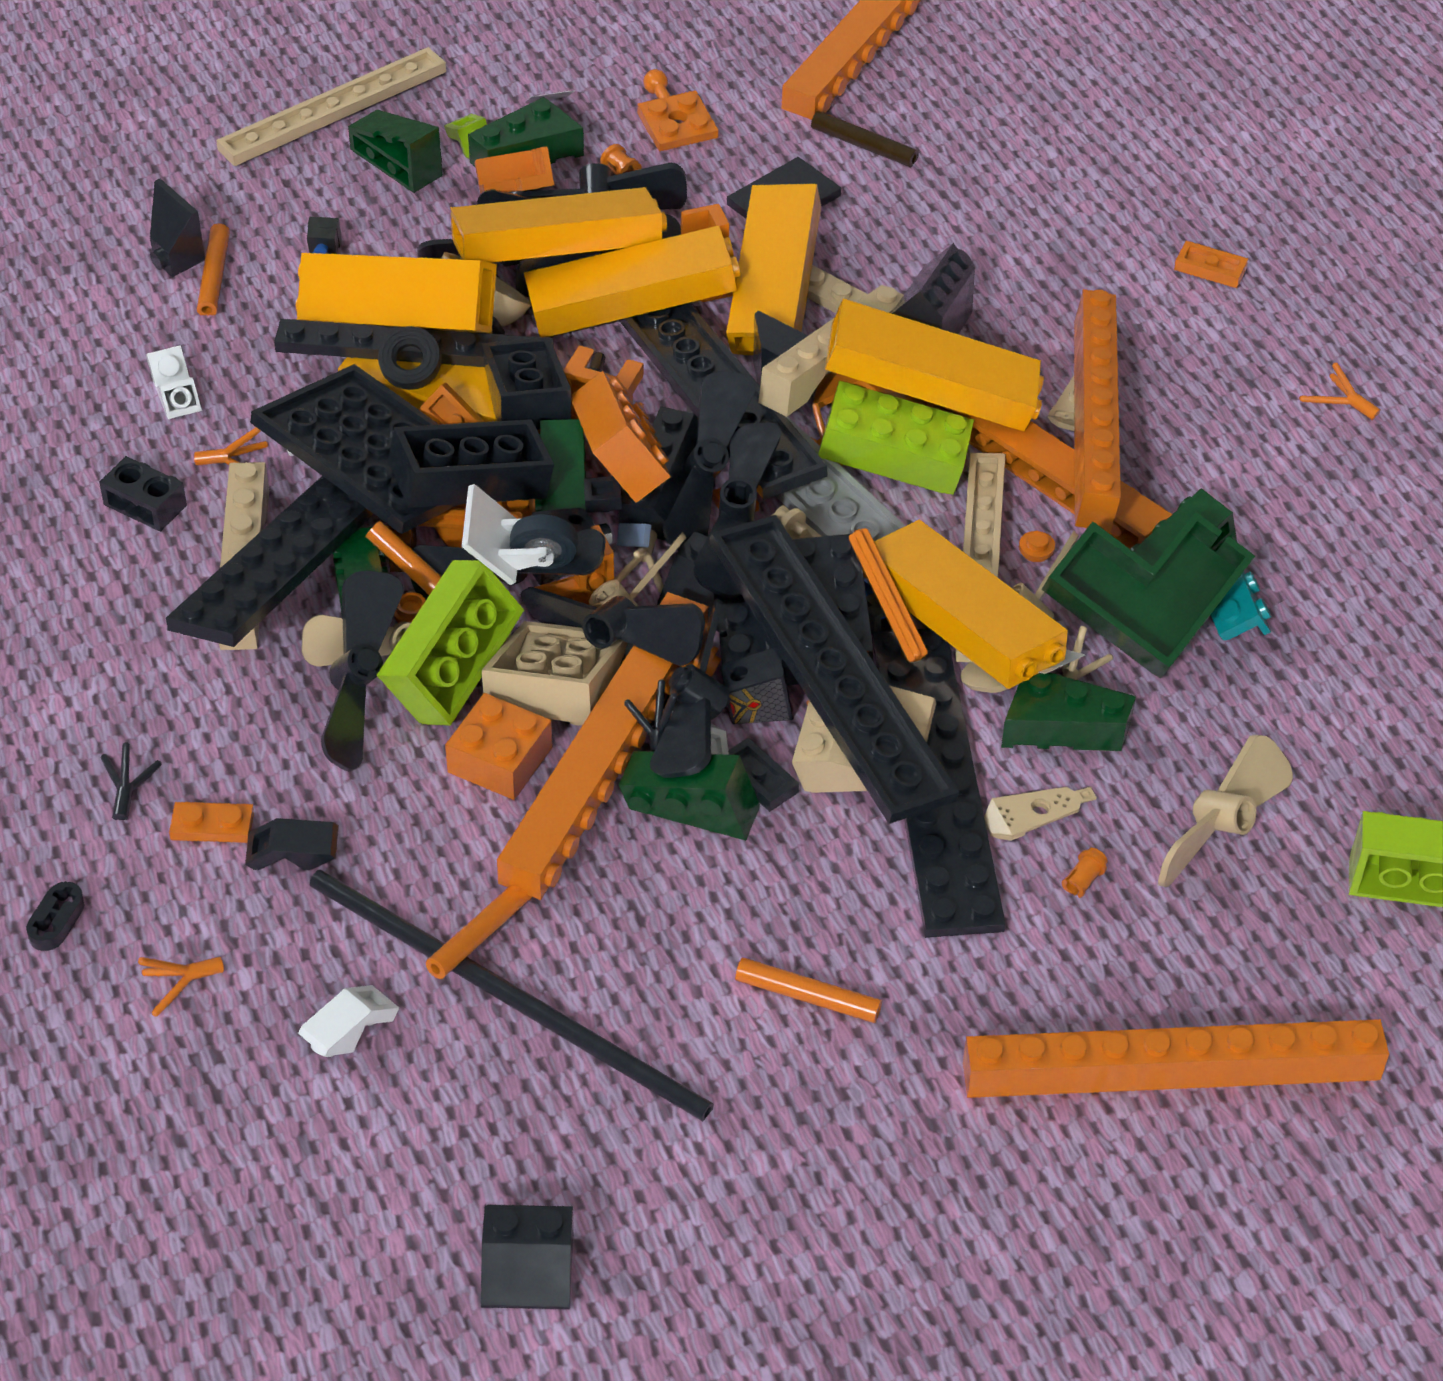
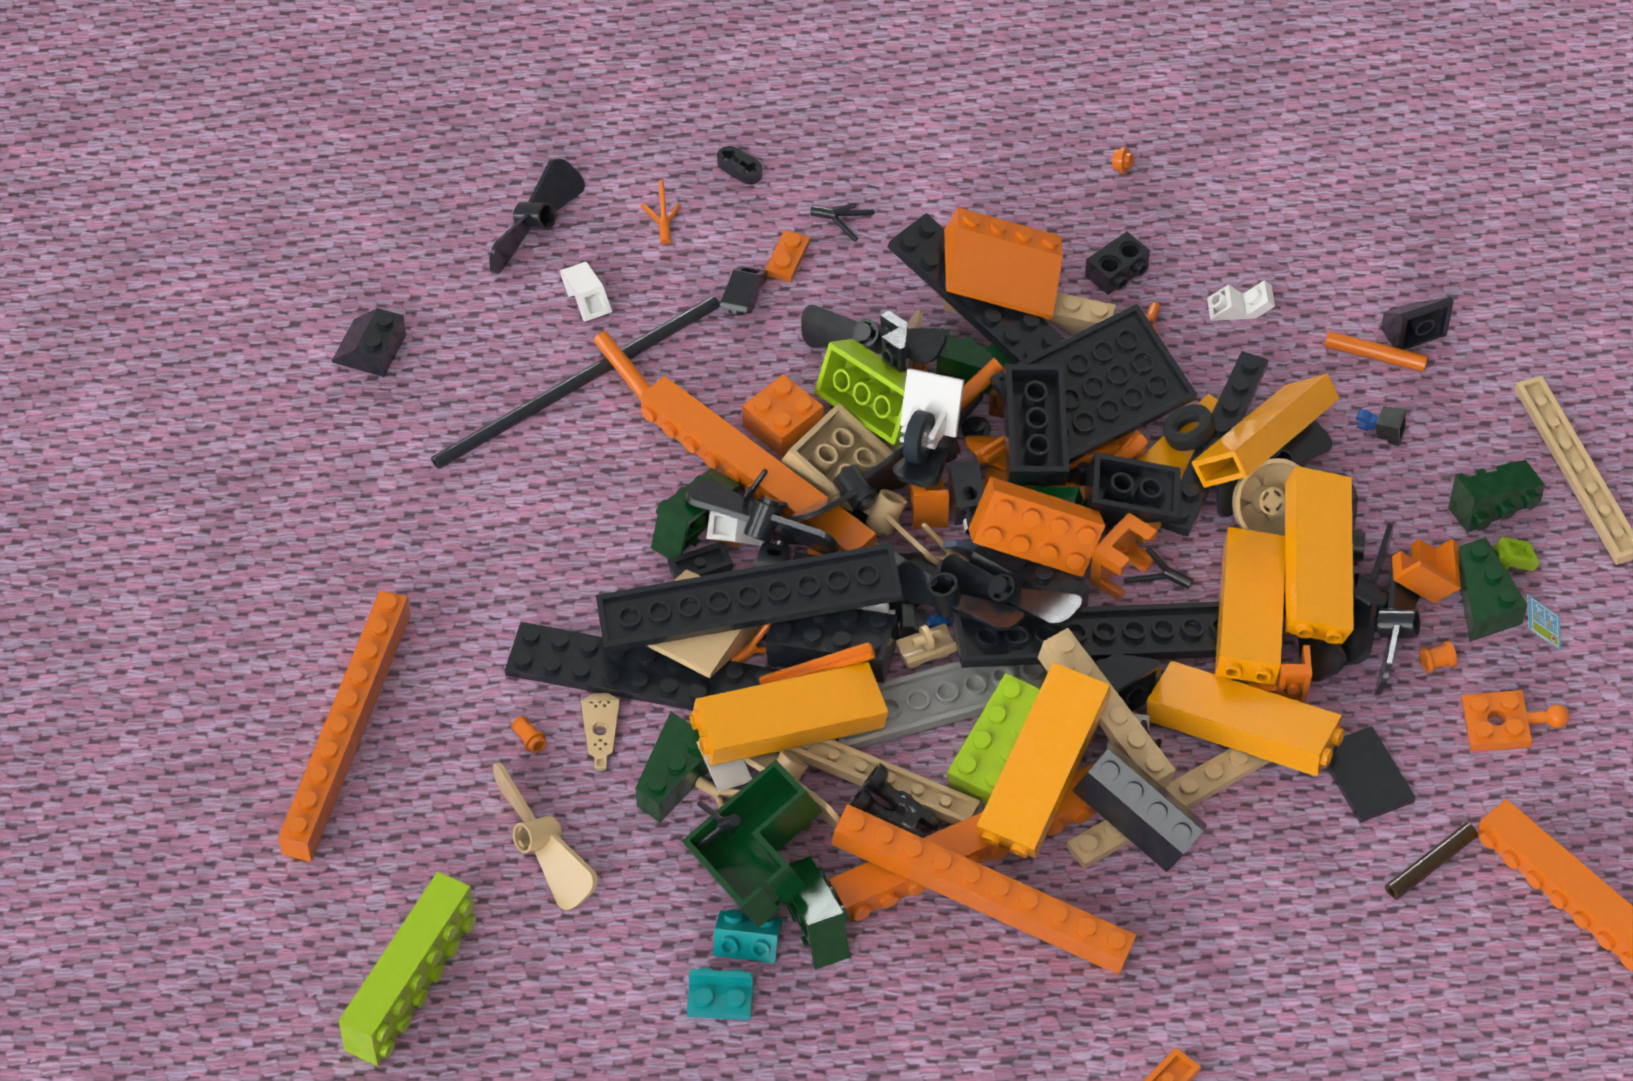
camera: 110 degrees right, 5 degrees up
(227, 535) = (1002, 262): none -> orange slope
(231, 1121) = (555, 188): none -> black piece
(399, 600) = (894, 340): none -> black slope
(808, 990) = (503, 542): orange piece -> none
(1027, 503) = (905, 809): none -> black piece
(1145, 612) = (723, 823): none -> black plant
(1320, 608) = (720, 994): none -> teal bracket

